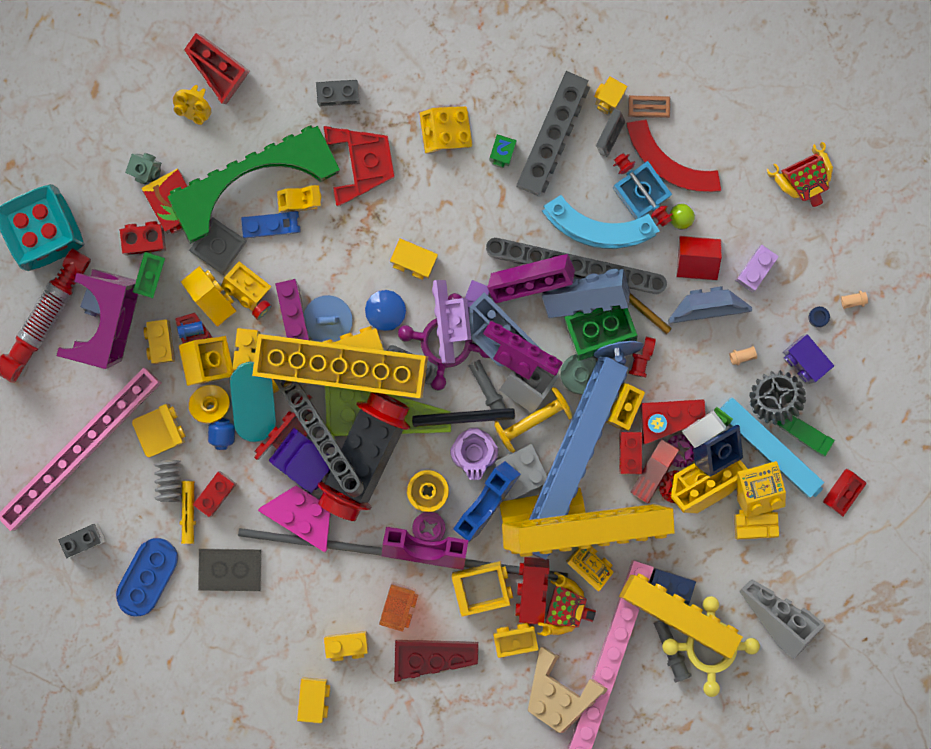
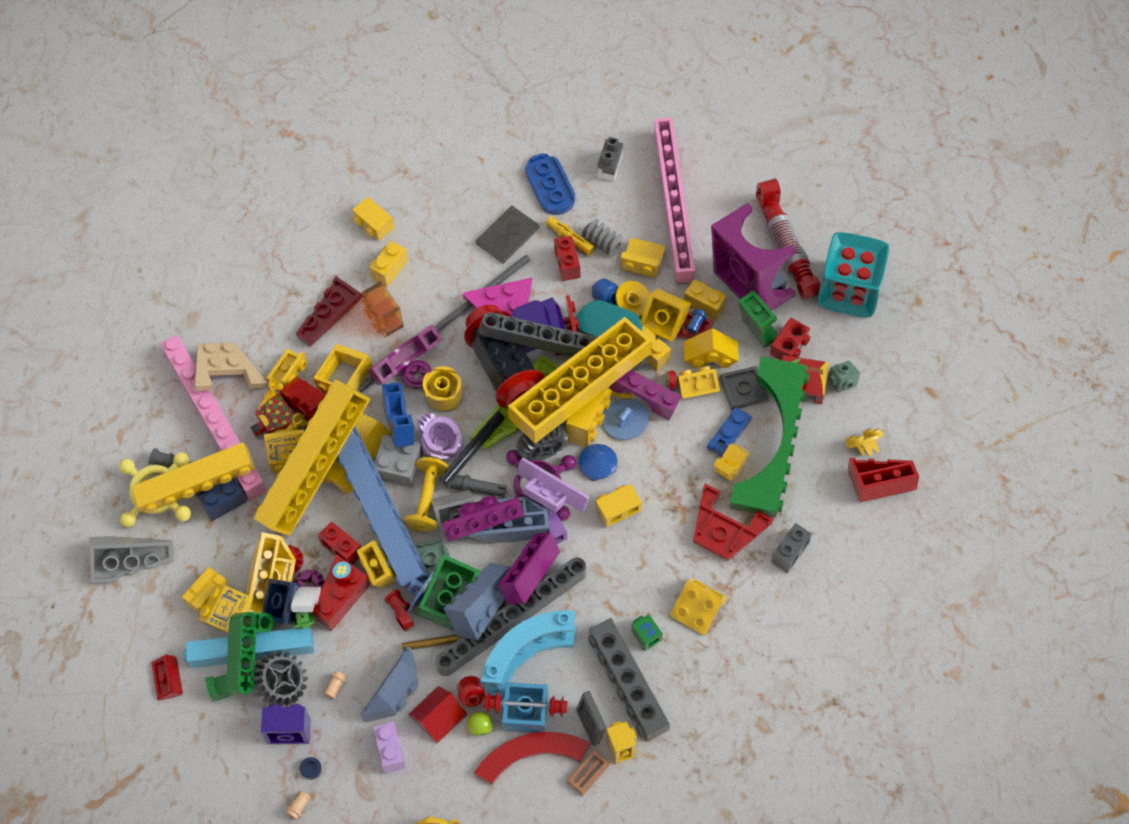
camera: 130 degrees right, 25 degrees down
(655, 471) = (311, 551): tile -> none
(663, 244) = (470, 691): none -> red head
(783, 443) = (242, 647): none -> green beam

